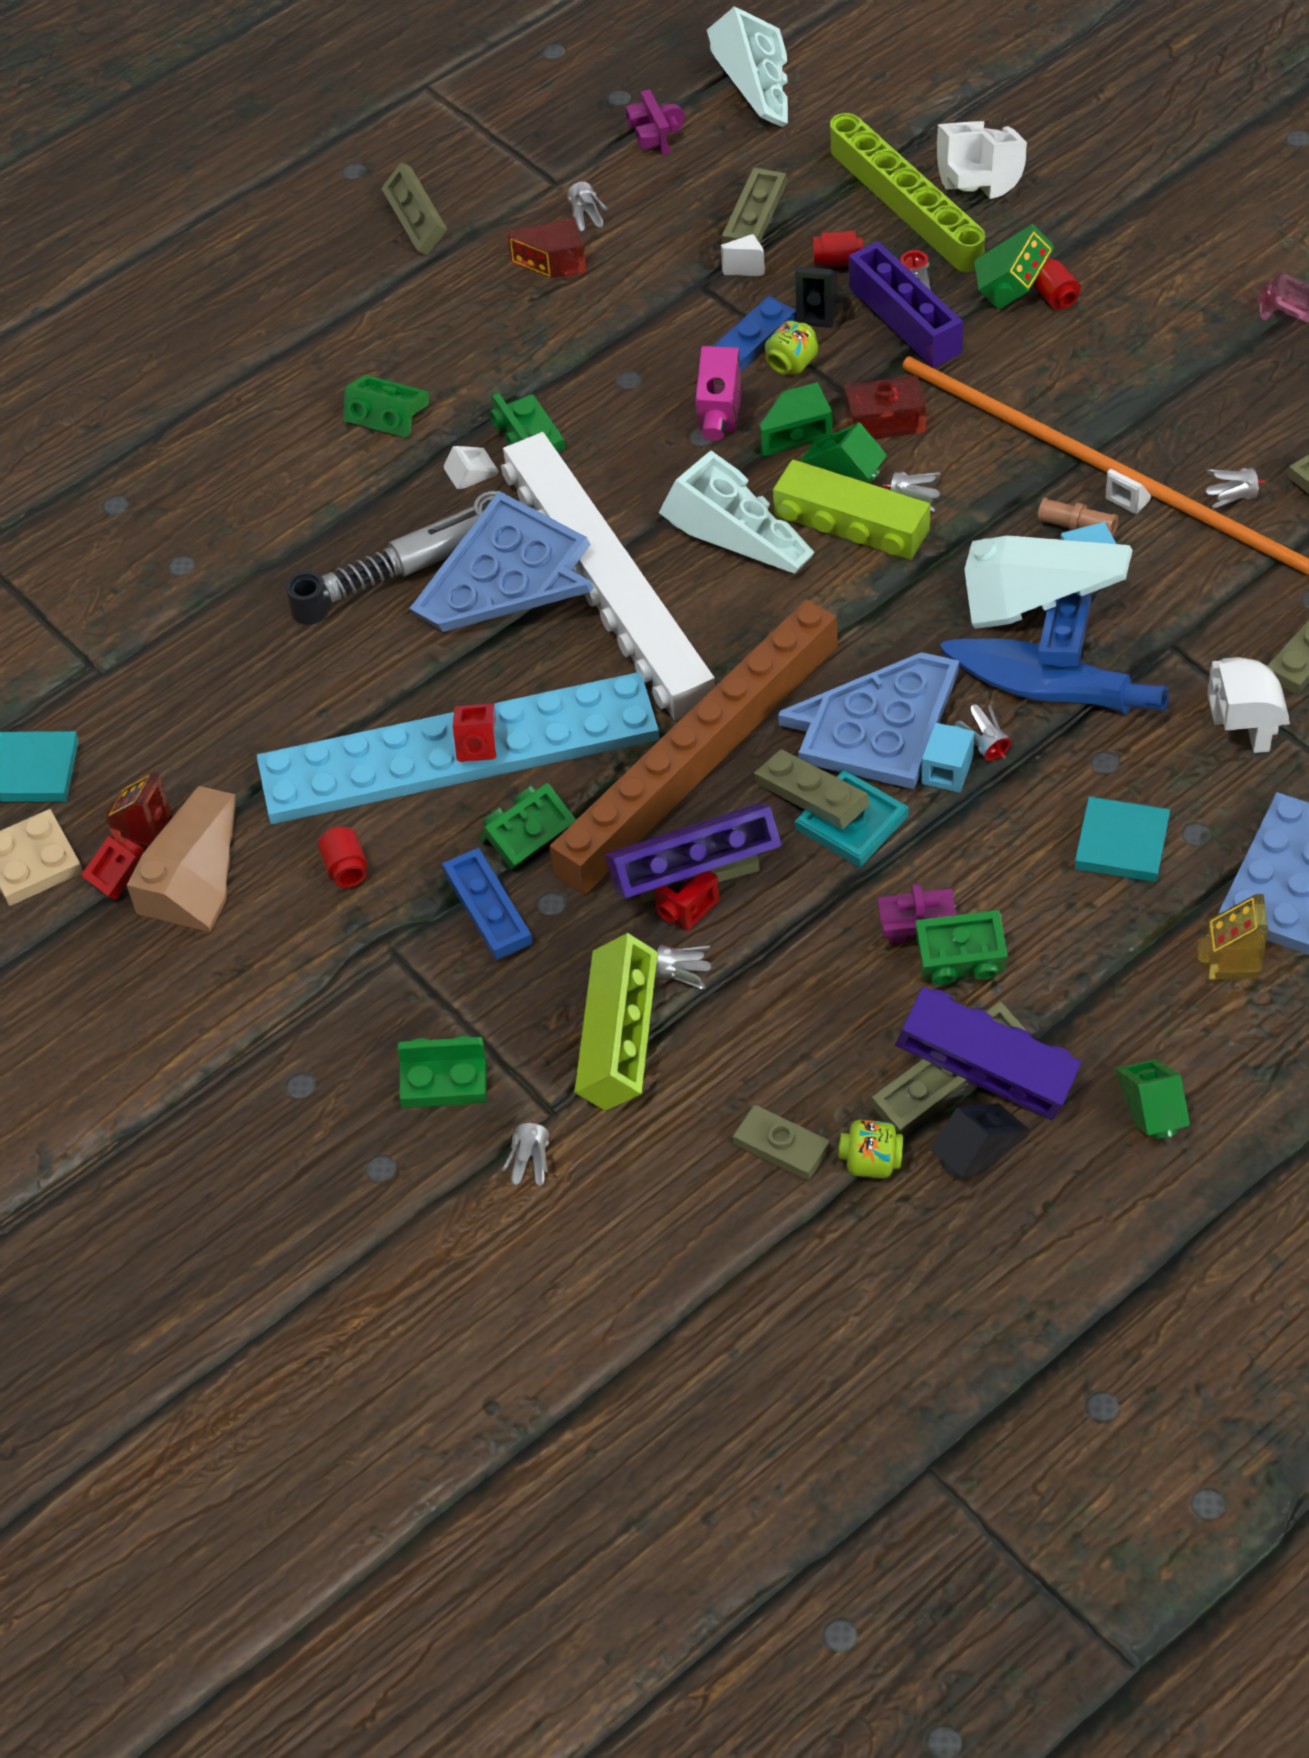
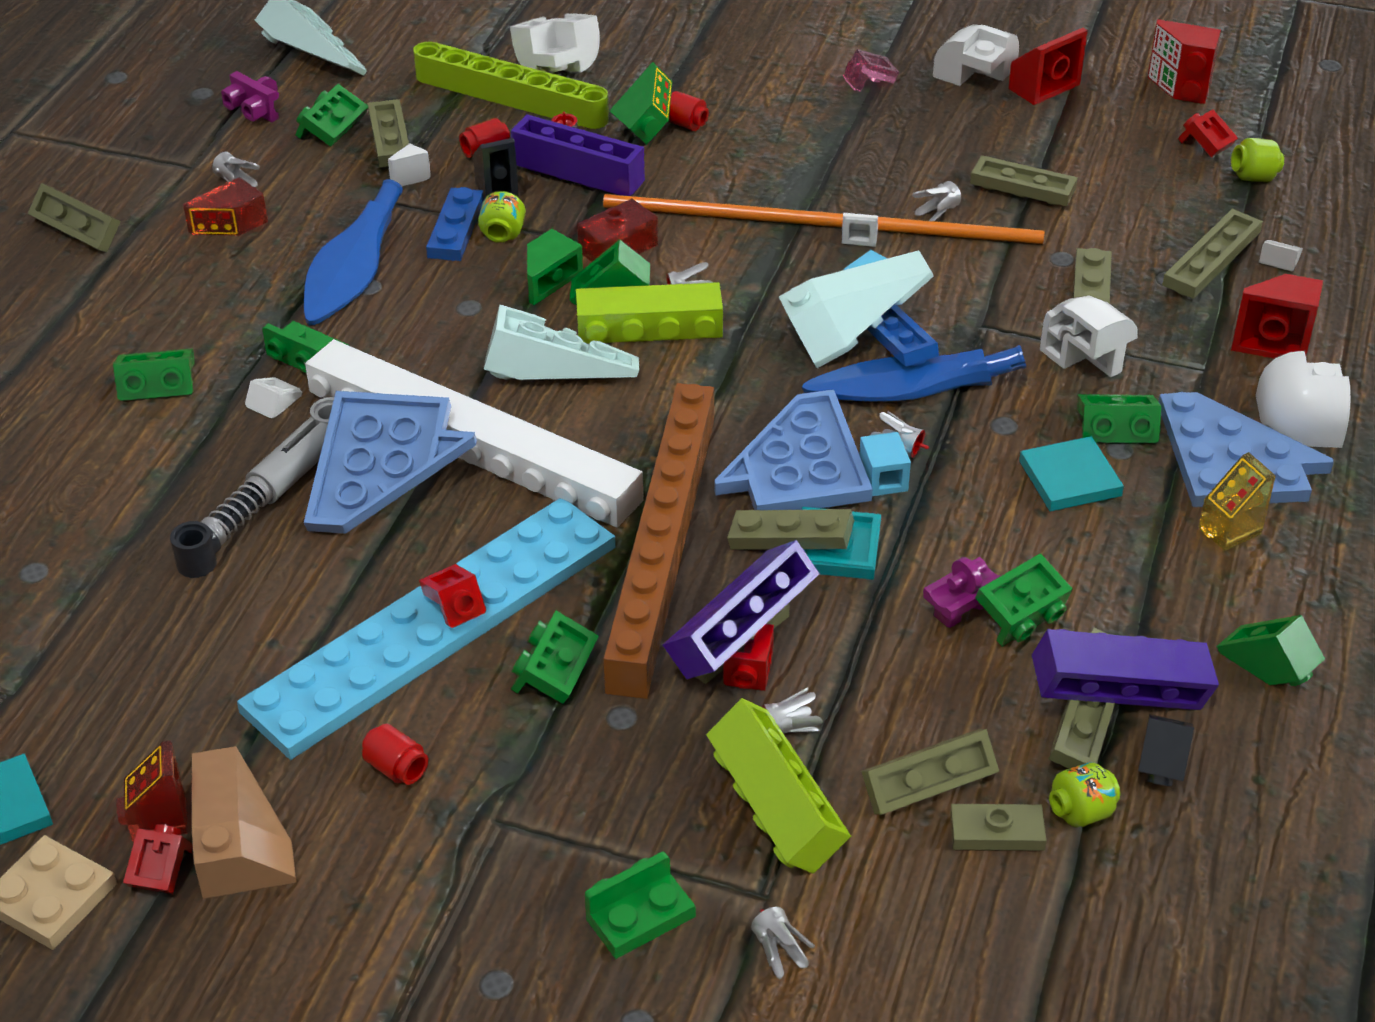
camera: 35 degrees left, 10 degrees down
(487, 903) = (567, 739): blue plate -> none
(626, 343) = (350, 259): none -> blue animal
(713, 170) = (331, 115): none -> green bracket
(718, 404) = (470, 277): dark pink torso -> none
(758, 1068) = (930, 771): none -> olive plate
(1074, 516) = (831, 260): nougat pin -> none
(1214, 799) = (1120, 418): none -> green bracket

